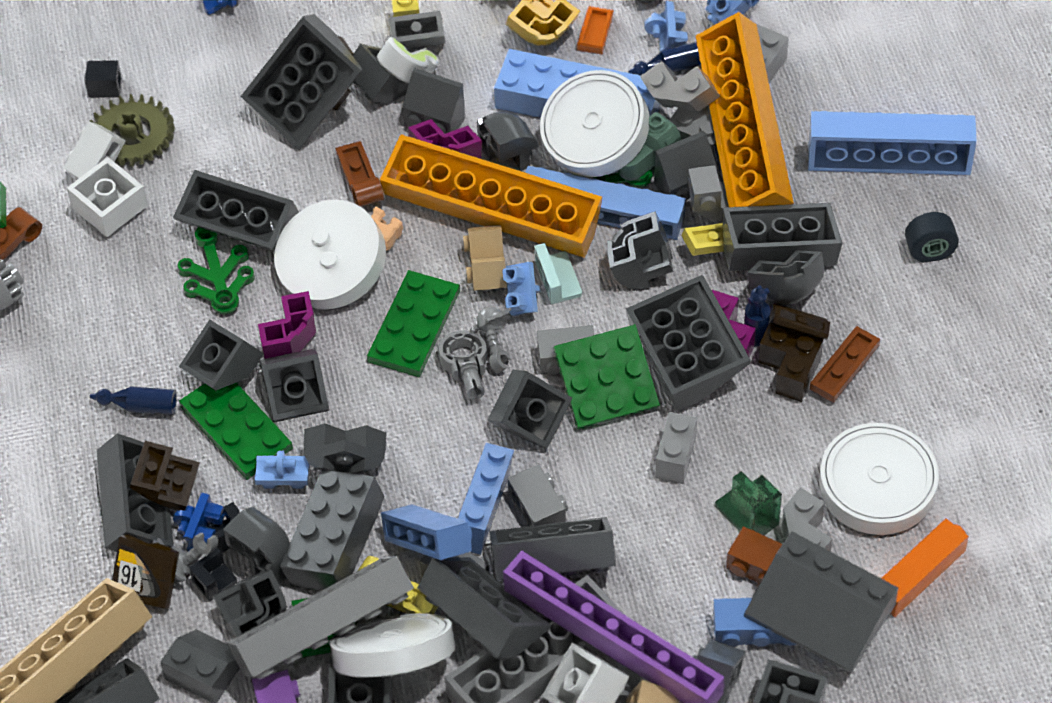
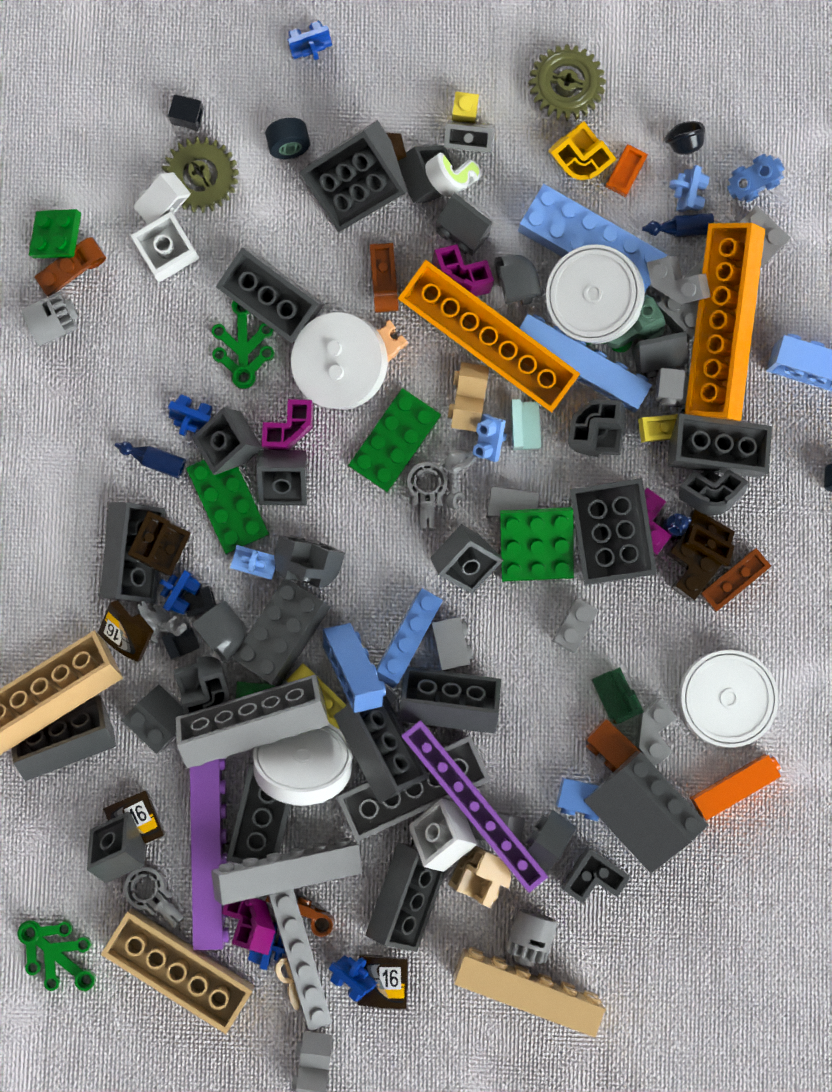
camera: 10 degrees right, 30 degrees up
(168, 348) = (188, 418): none -> blue hips
(220, 74) = (287, 138): none -> black wheel

